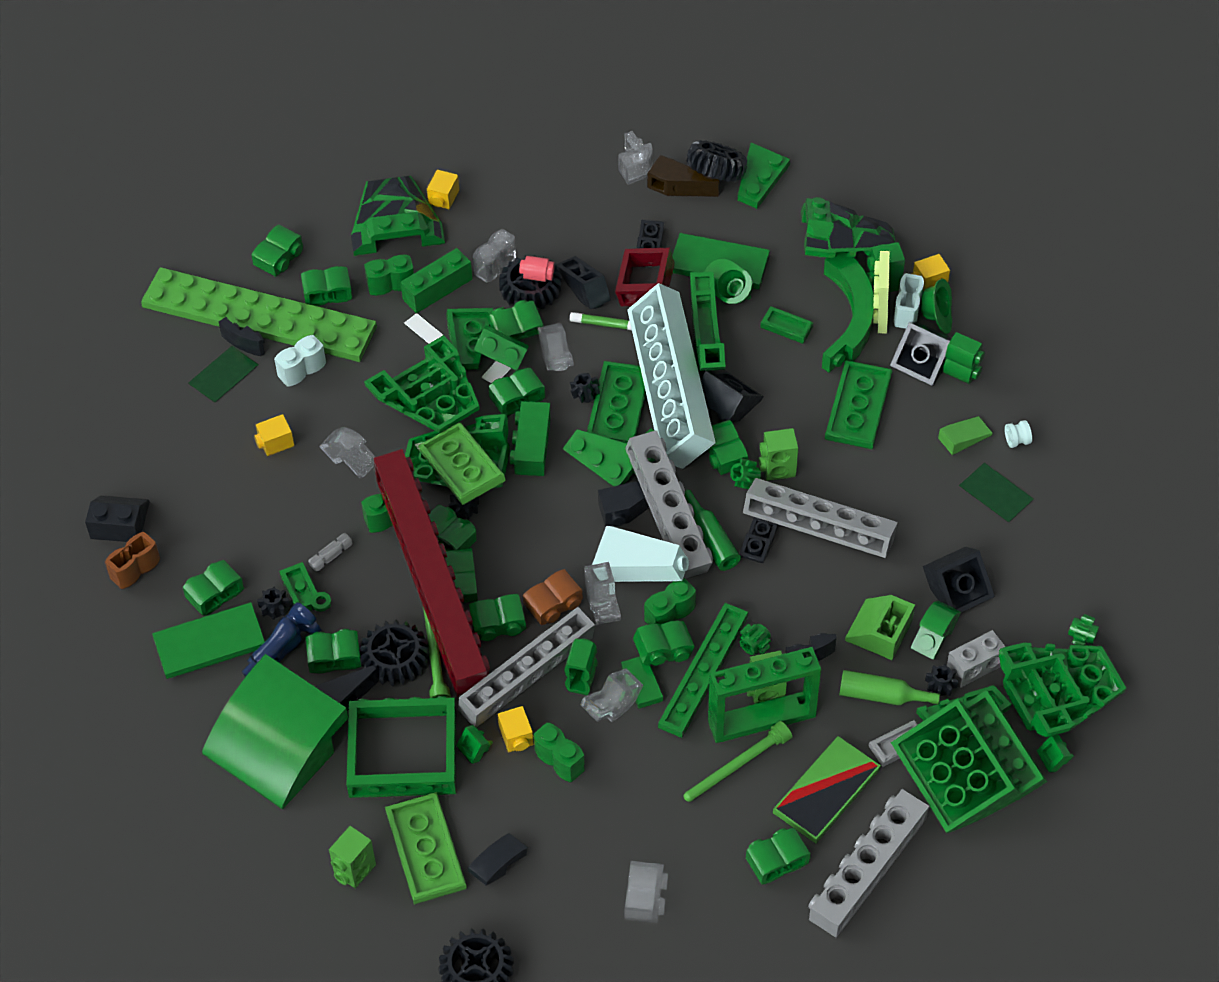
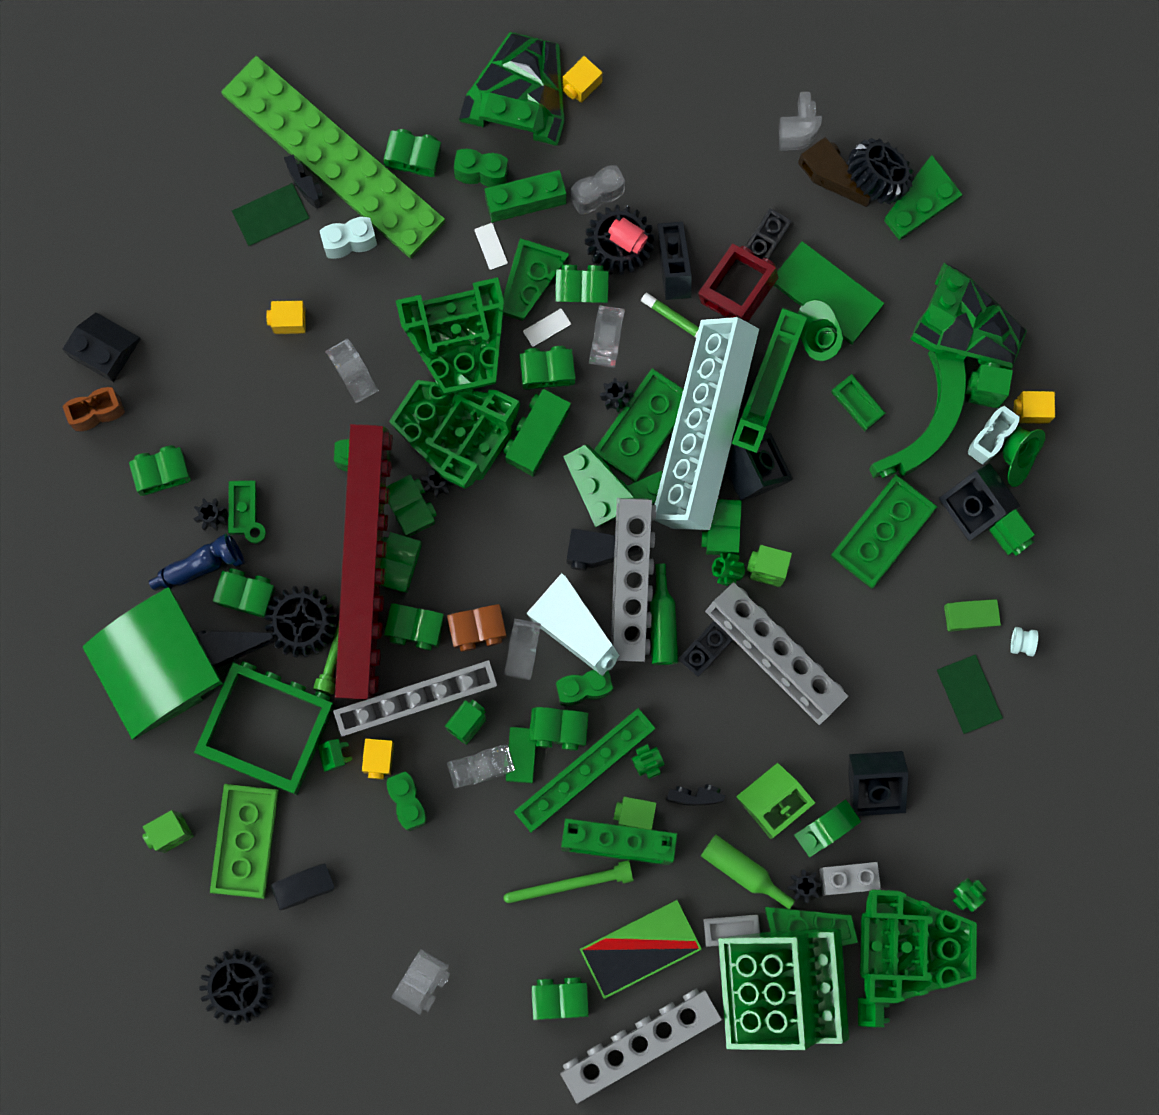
camera: 20 degrees right, 25 degrees up
(208, 640) = (133, 529): green tile -> none
(277, 250) = (381, 86): green brick -> none
(330, 552) = (288, 477): light grey axle -> none
(461, 463) = (448, 444): bright green tile -> none
(501, 347) = (551, 315): green brick -> none
(881, 288) = (966, 419): yellowish green plate -> none

